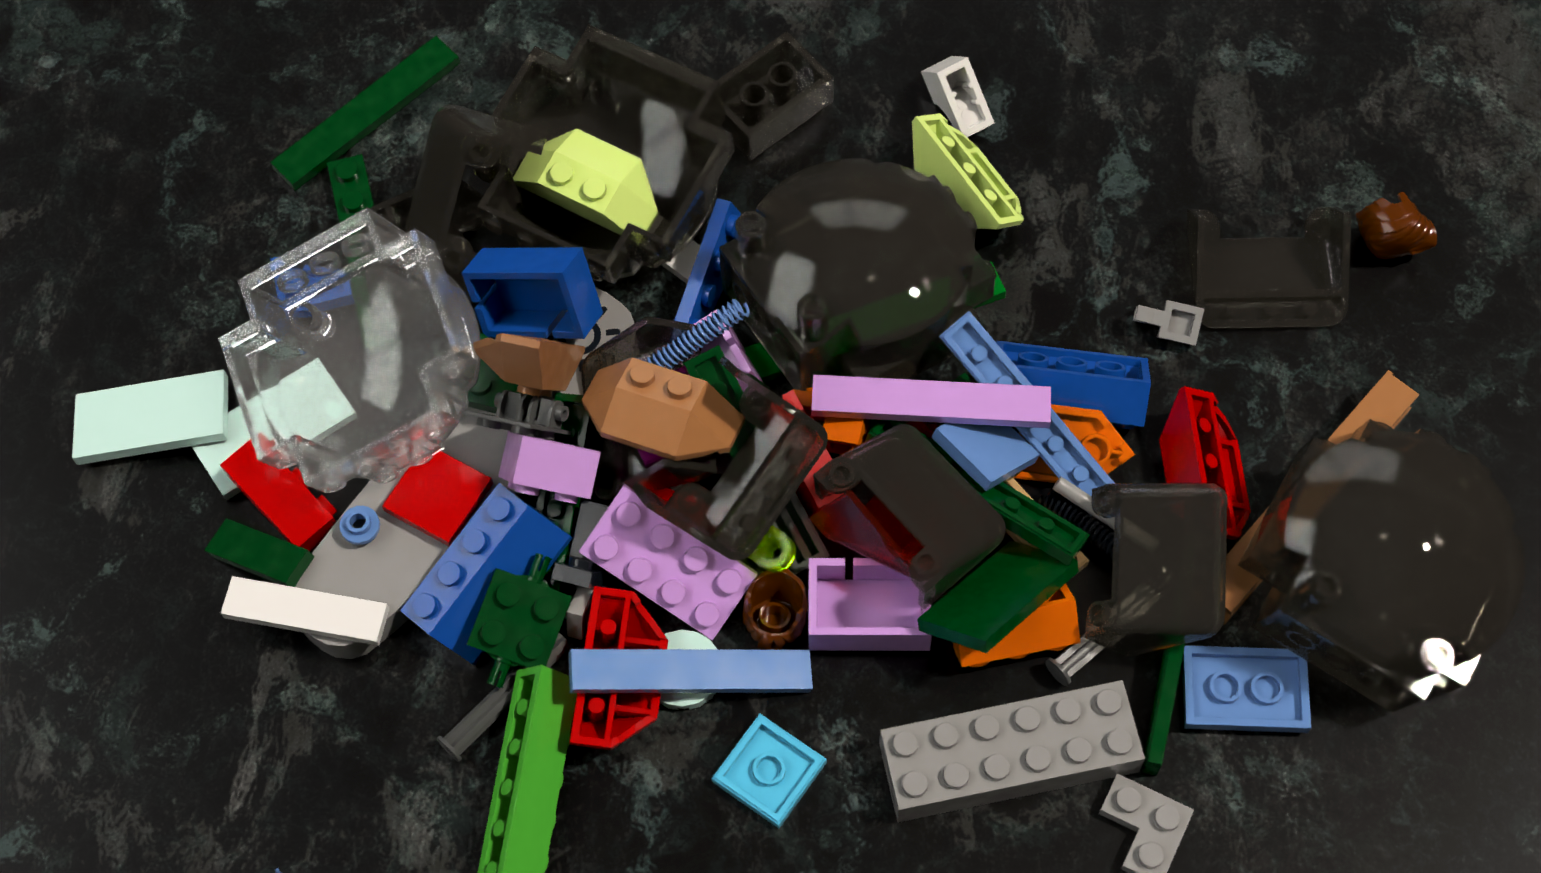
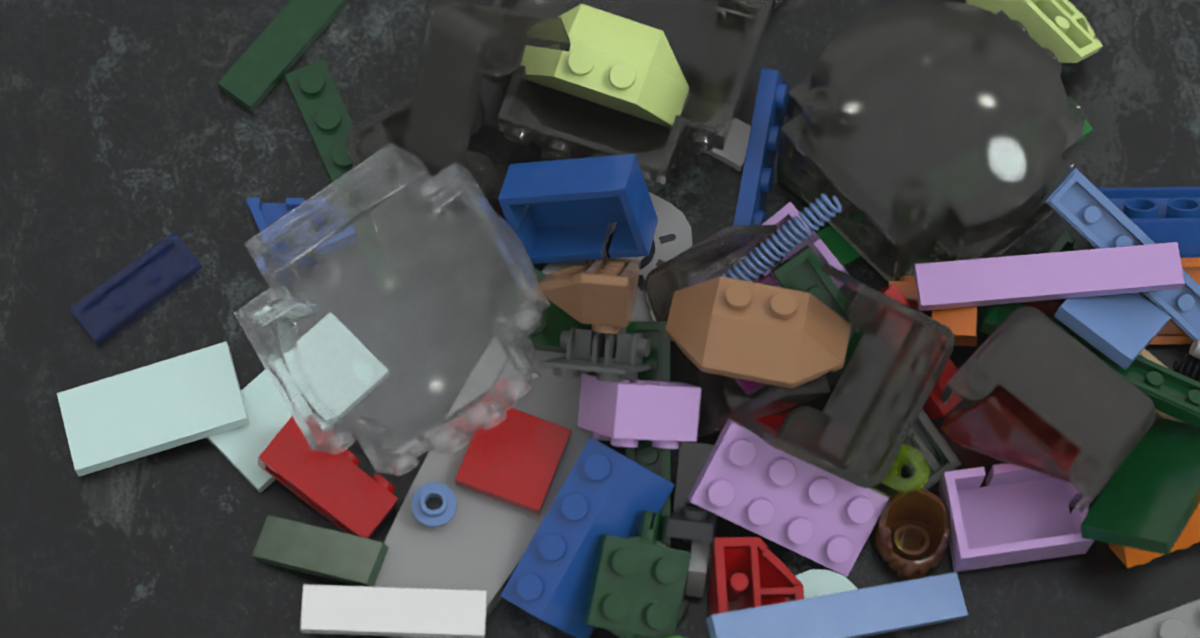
camera: 15 degrees left, 5 degrees up
(163, 319) = (135, 288): none -> clear blue tile

